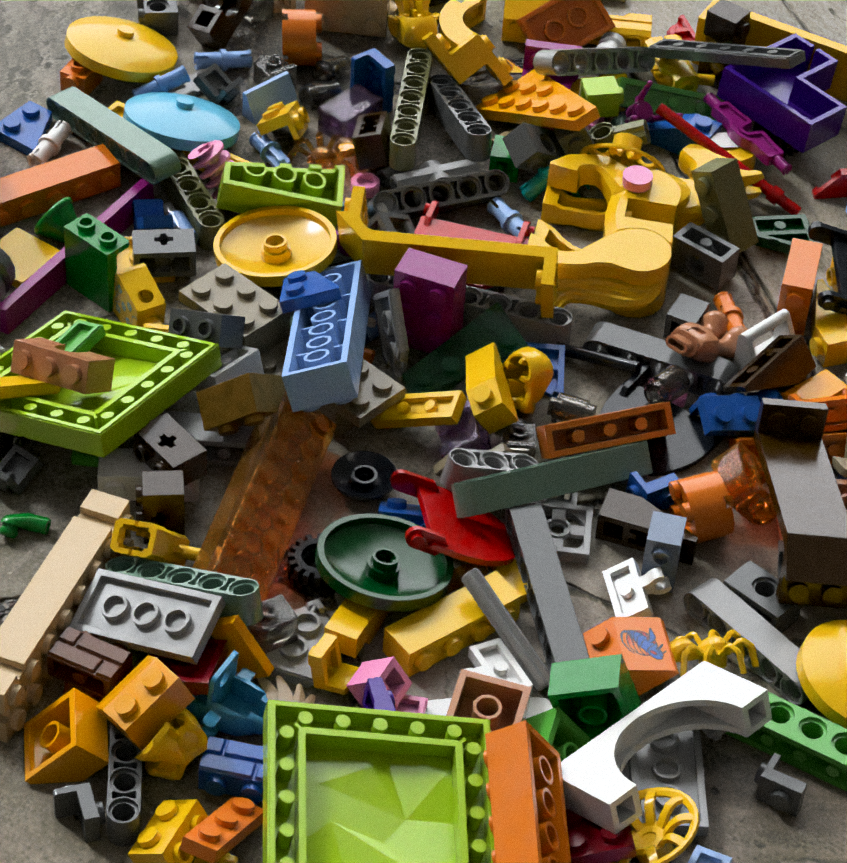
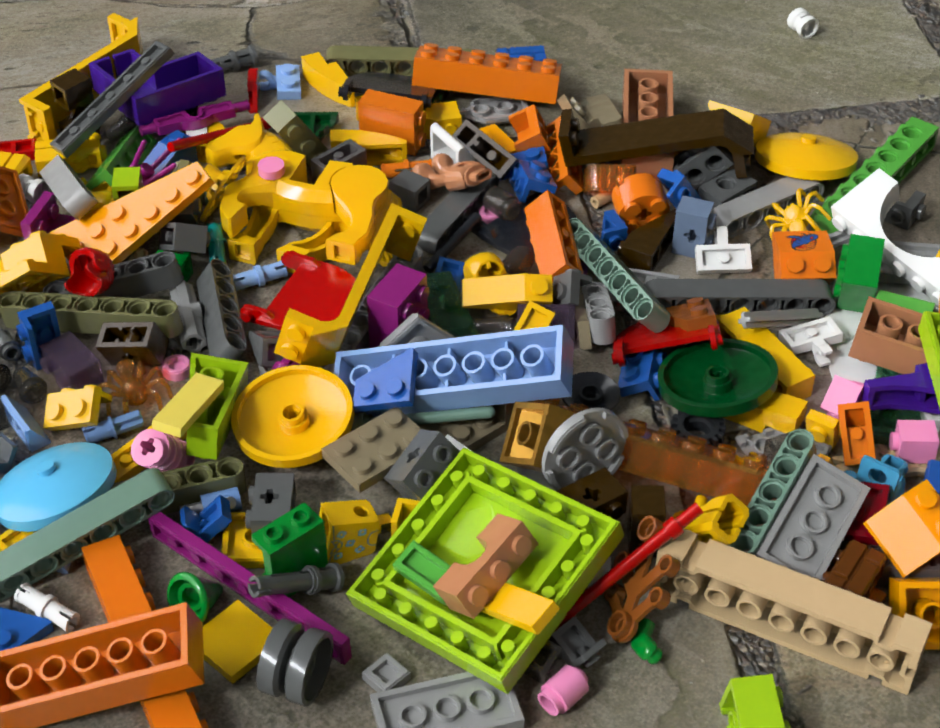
camera: 80 degrees left, 0 degrees up
(41, 499) = (625, 618): none -> dark orange plant
(75, 283) = (308, 580): none -> dark grey pin
(106, 486) = (671, 529): none -> red bar
(218, 424) = (584, 446): none -> light grey tile
(249, 157) = (187, 405): none -> light yellow tile
(314, 677) = (856, 432): none -> orange slope
(441, 83) = (90, 272): none -> red cap
(487, 541) = (692, 315): none -> dark orange wing
(500, 428) = (567, 286): none -> dark grey bracket
(723, 540) = (676, 185): none -> blue bracket
(756, 277) = (379, 146): none -> yellow slope

